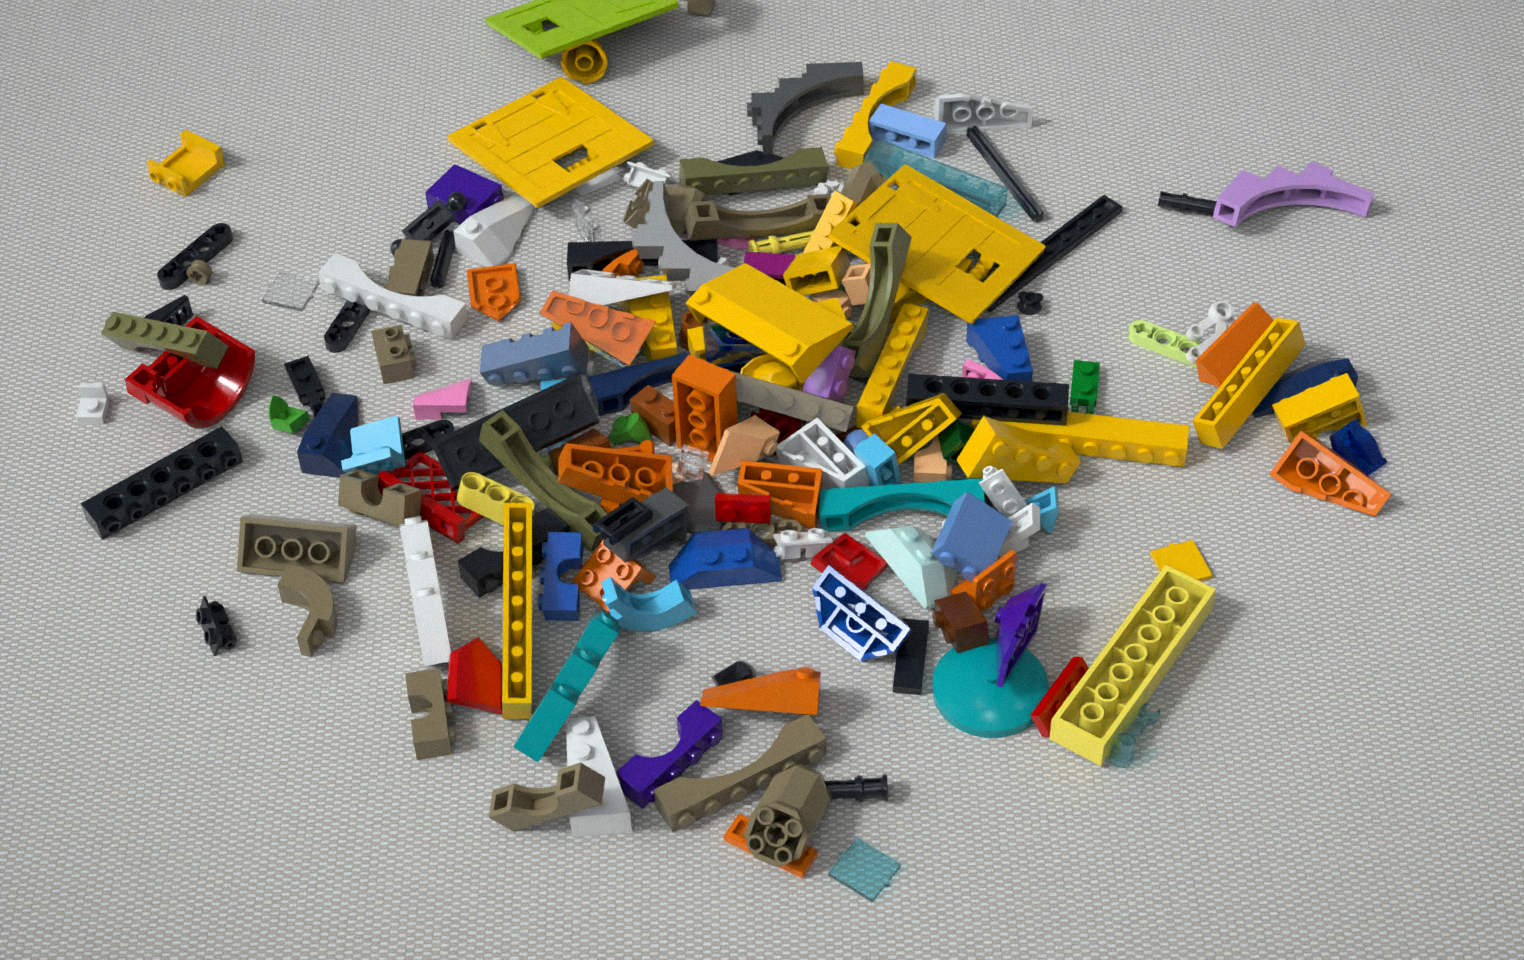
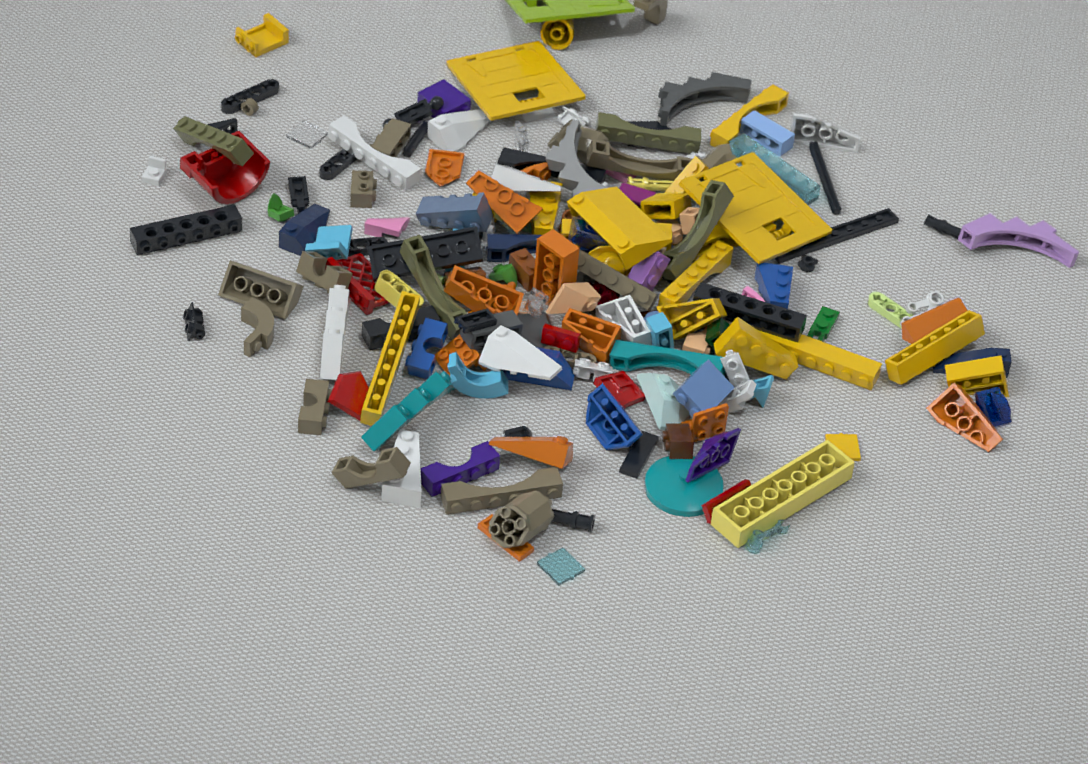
camera: 10 degrees right, 5 degrees down
(688, 554) = (513, 353): none -> white wedge

